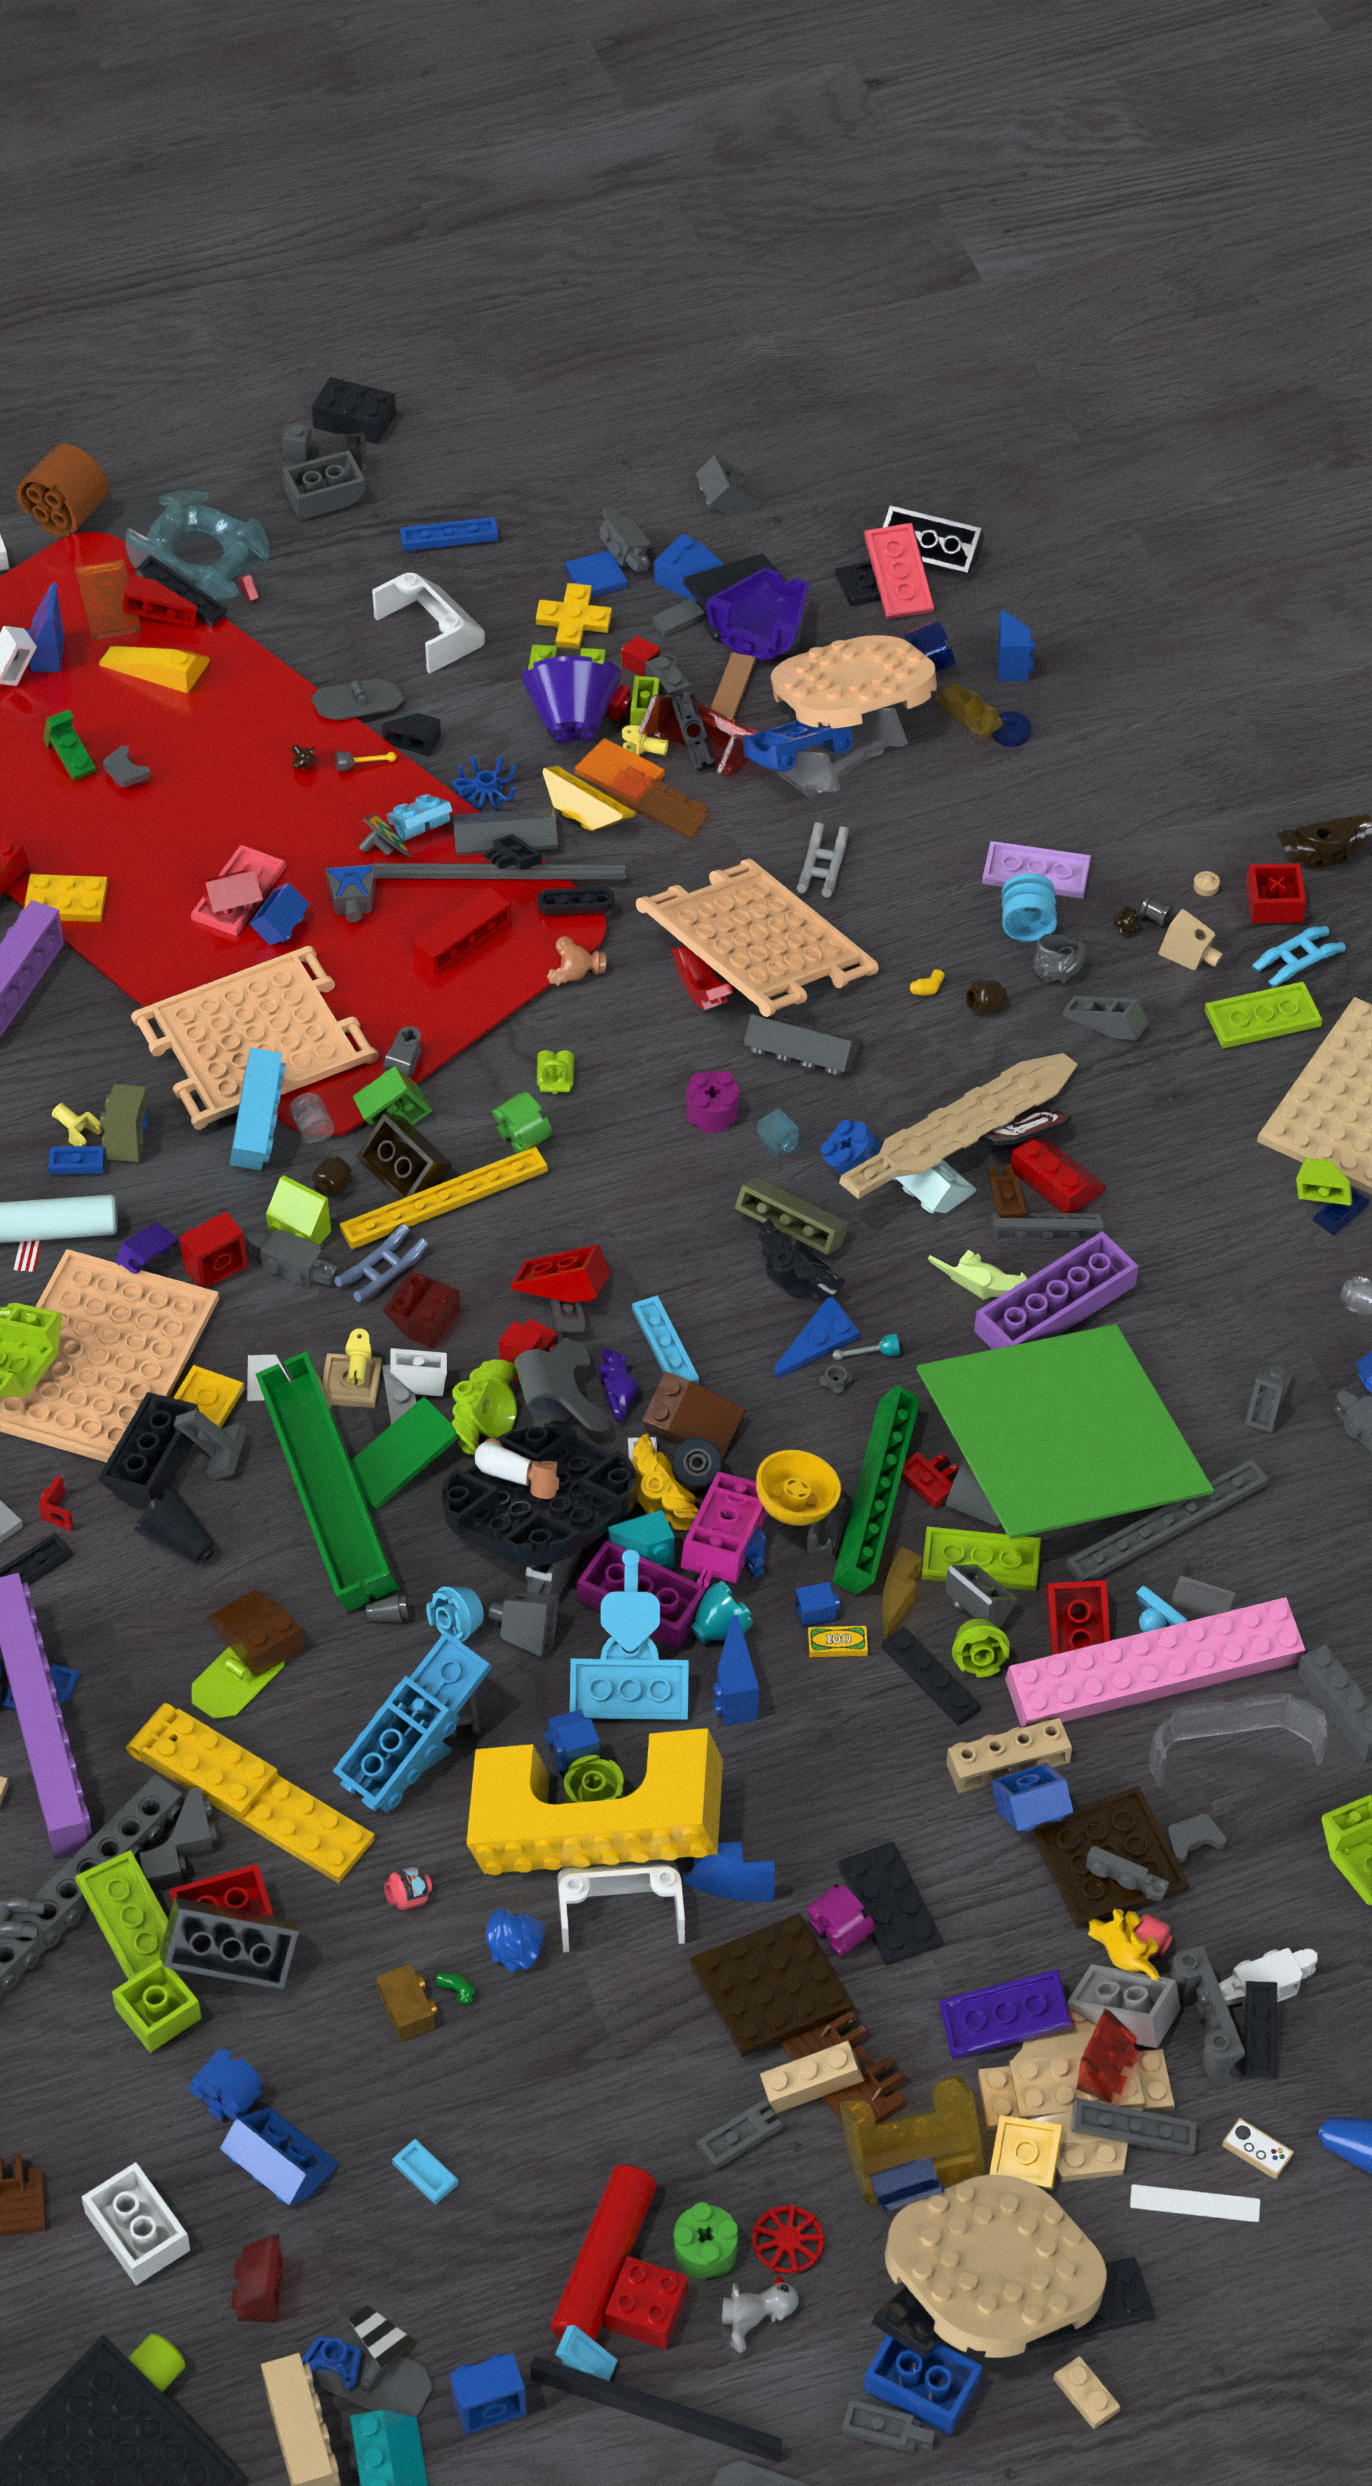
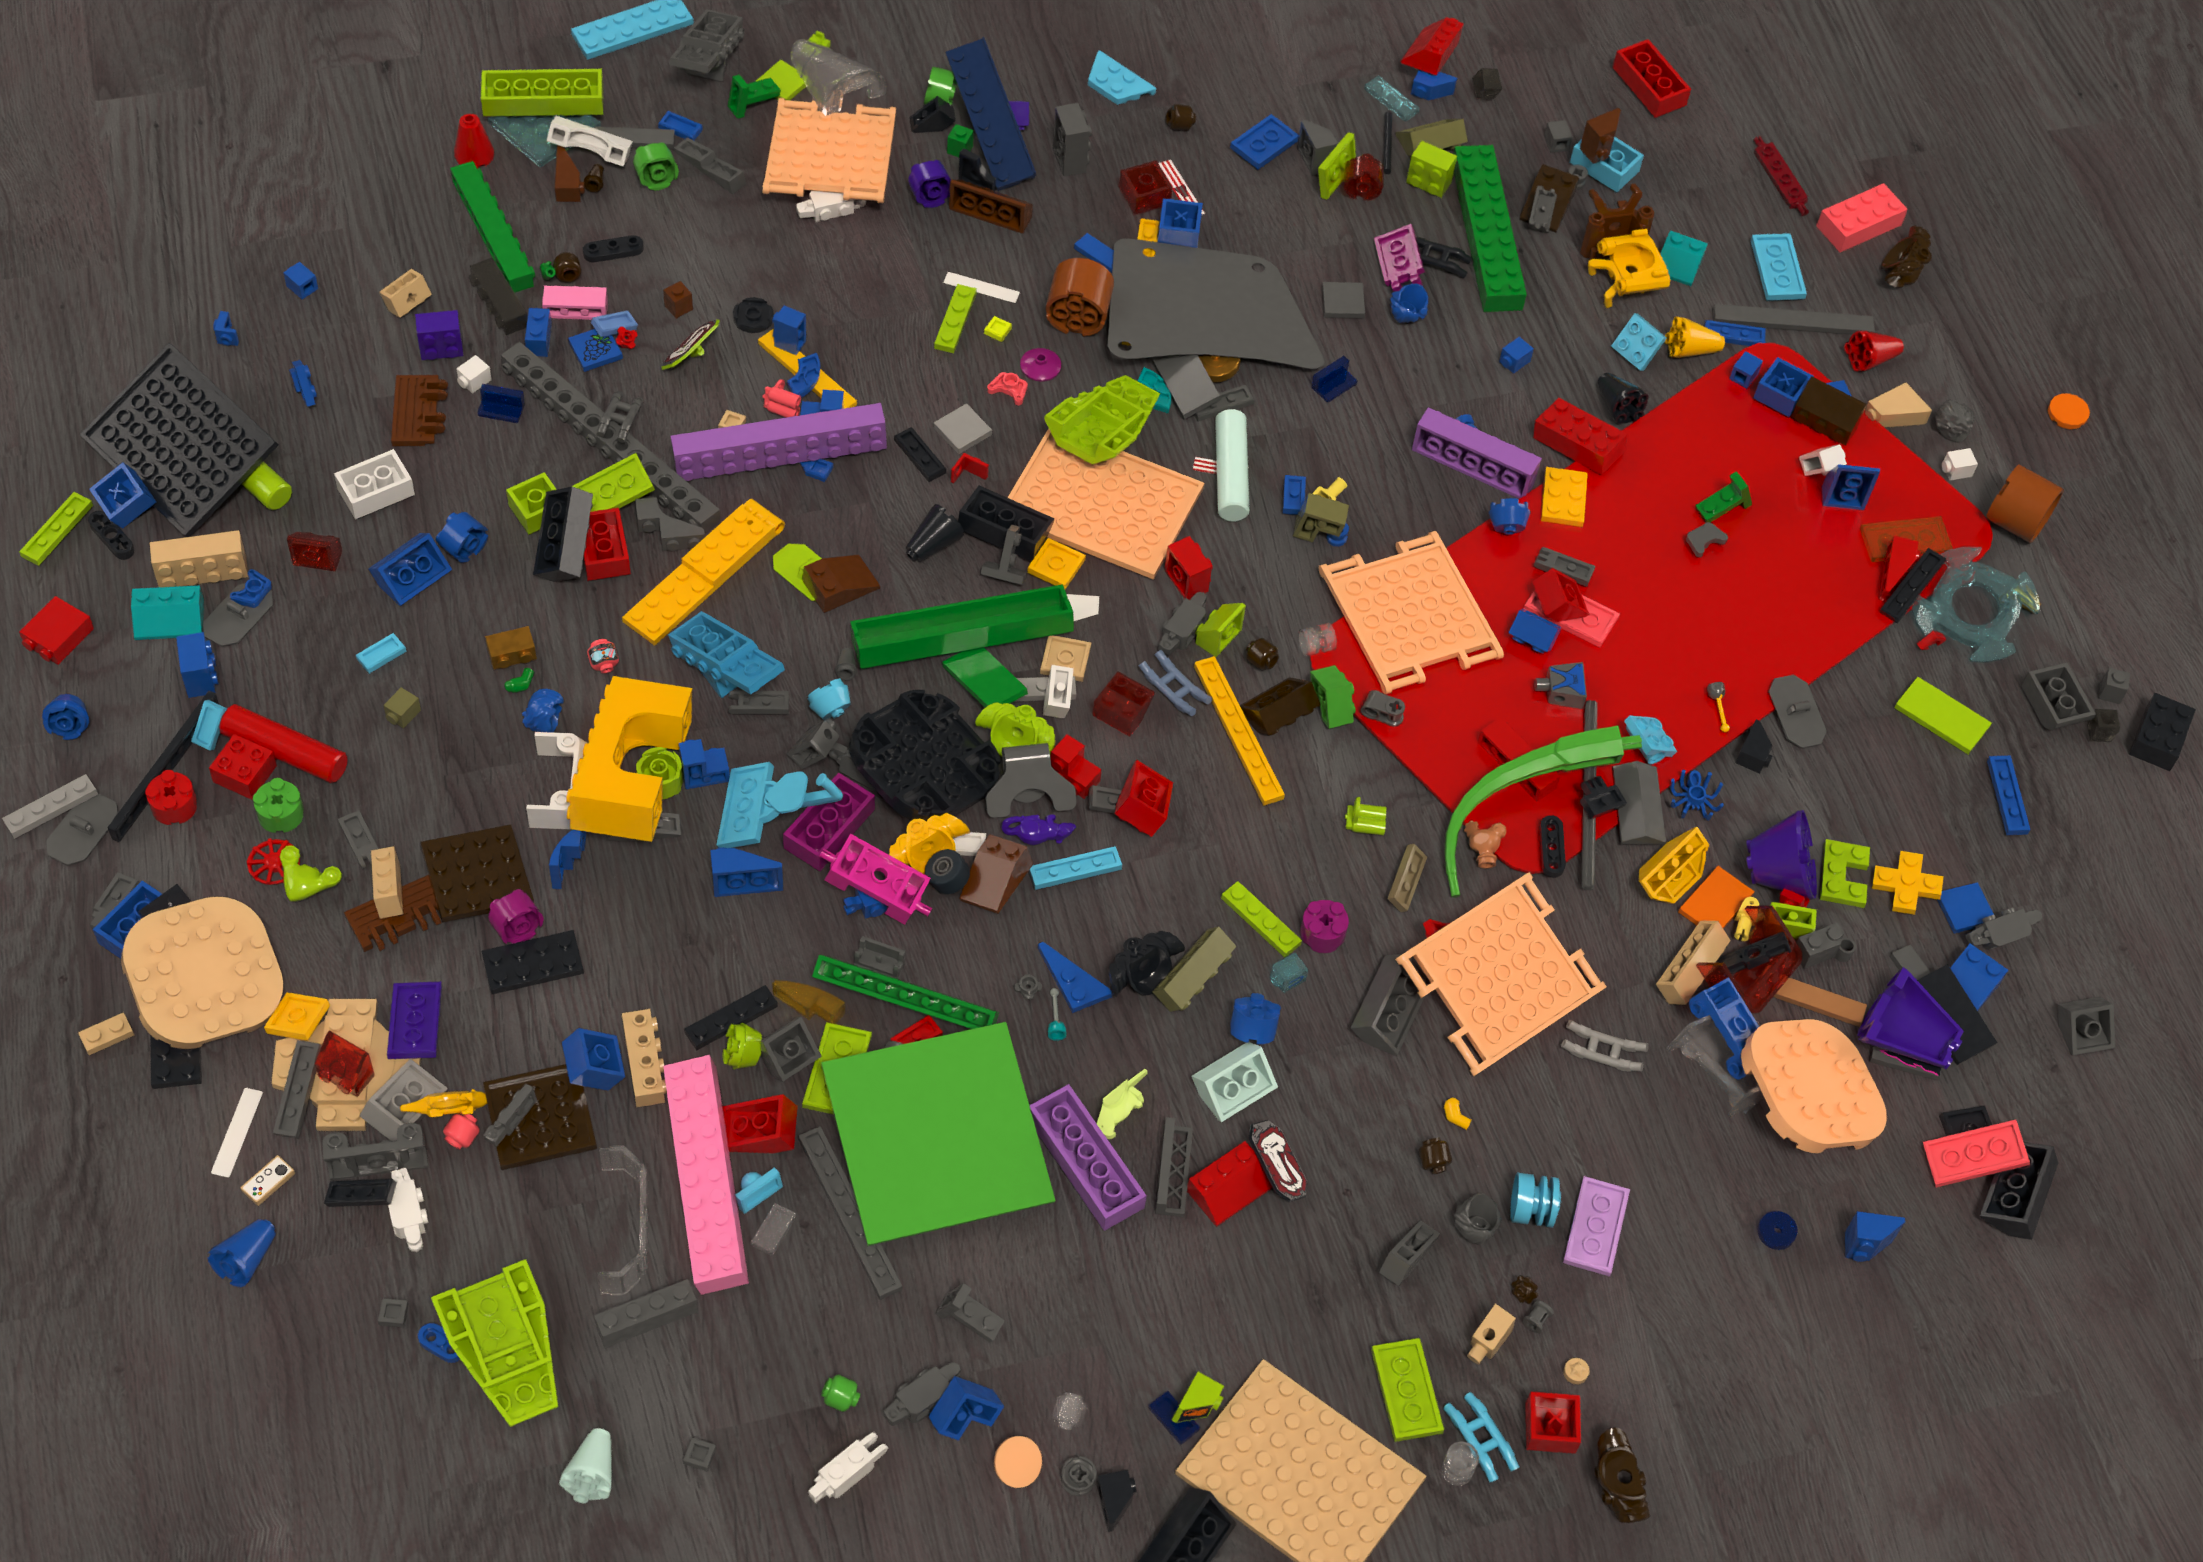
camera: 90 degrees right, 5 degrees up
(111, 938) = (1509, 516): none -> blue cone
(145, 1246) = (1198, 528): dark purple hinge -> none
(161, 666) = (1830, 571): yellow wedge -> none
(176, 893) = (1567, 565): none -> dark grey hinge
(257, 1109) = (1319, 595): medium azure brick -> none
(303, 757) = (1719, 661): dark brown plant -> none
(346, 583) = (1943, 715): none -> lime tile
(358, 1353) = (1078, 655): light yellow piece -> none
(380, 2335) = (262, 615): sticker -> none
(382, 837) = (1627, 703): dark grey shield -> none
(459, 630) = (1888, 791): white windscreen -> none
(466, 871) = (1568, 753): none -> bright green piece
(508, 1465) = (957, 728): white piece -> none
(521, 2120) = (402, 708): none -> olive brick
(522, 1122) = (1305, 783): bright green brick -> none
(632, 1033) = (1407, 878): none -> dark tan plate
(637, 653) = (1857, 927): red brick -> none
(648, 1536) = (872, 823): teal slope -> none
(650, 800) = (1674, 922): clear orange windscreen -> none
(705, 1166) = (1261, 919): none -> lime plate
(708, 783) = (1682, 975): none -> tan brick
(715, 1614) = (802, 873): teal piece -> none
(715, 2367) = (171, 798): none -> red brick
(748, 2309) = (221, 826): light grey animal -> none
(797, 1487) = (897, 907): yellow piece -> none
(816, 1604) = (805, 942): blue brick -> none
(817, 2186) = (303, 880): none -> lime head
(837, 1641) = (773, 956): yellow tile -> none
(905, 2183) = (282, 929): clear blue panel -> none
(931, 641) = (1869, 1164): clear blue brick -> none
(946, 2135) = (317, 939): clear yellow windscreen -> none
(962, 1122) = (1282, 1109): tan plate -> none
(969, 709) = (1795, 1192): clear yellow slope -> none
(1006, 1193) = (1207, 1137): reddish brown hinge -> none
(1192, 1834) = (547, 1178): dark grey piece -> none
(1337, 966) = (1460, 1463): none -> clear wheel

